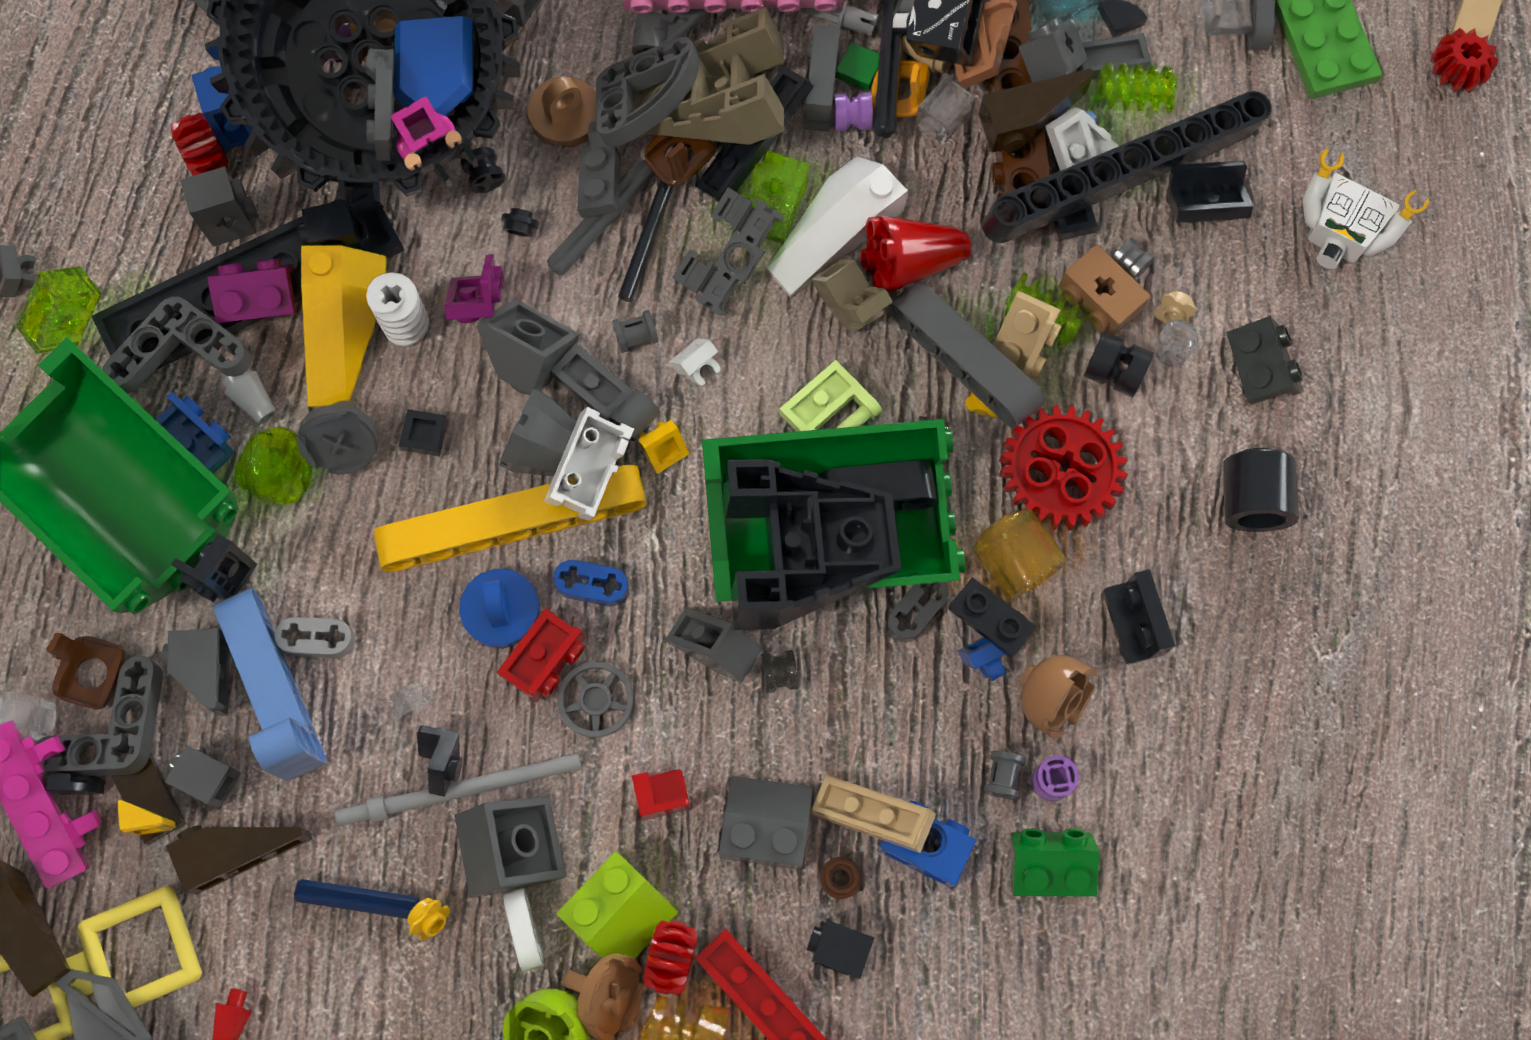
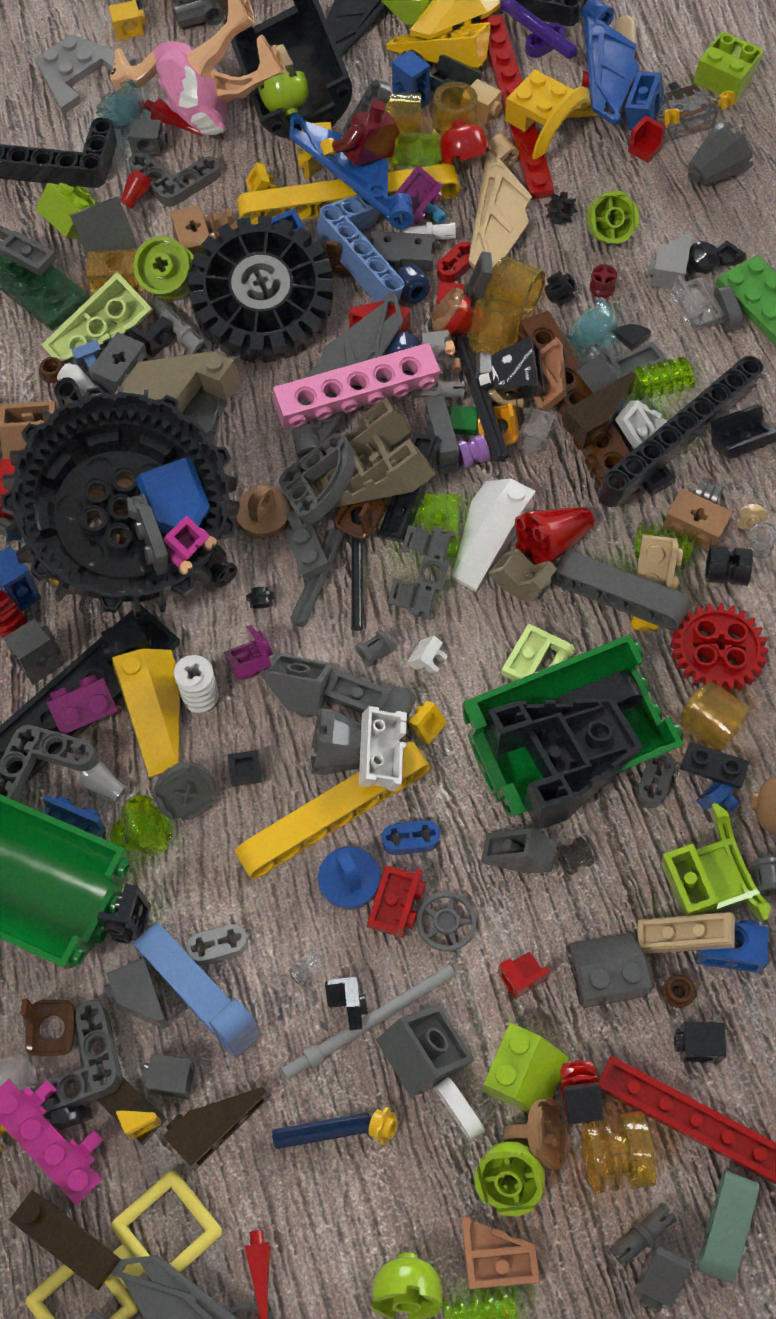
camera: 15 degrees left, 10 degrees down
(660, 979) = (583, 1103): none -> black tile
(936, 752) = (713, 875): none -> lime piece

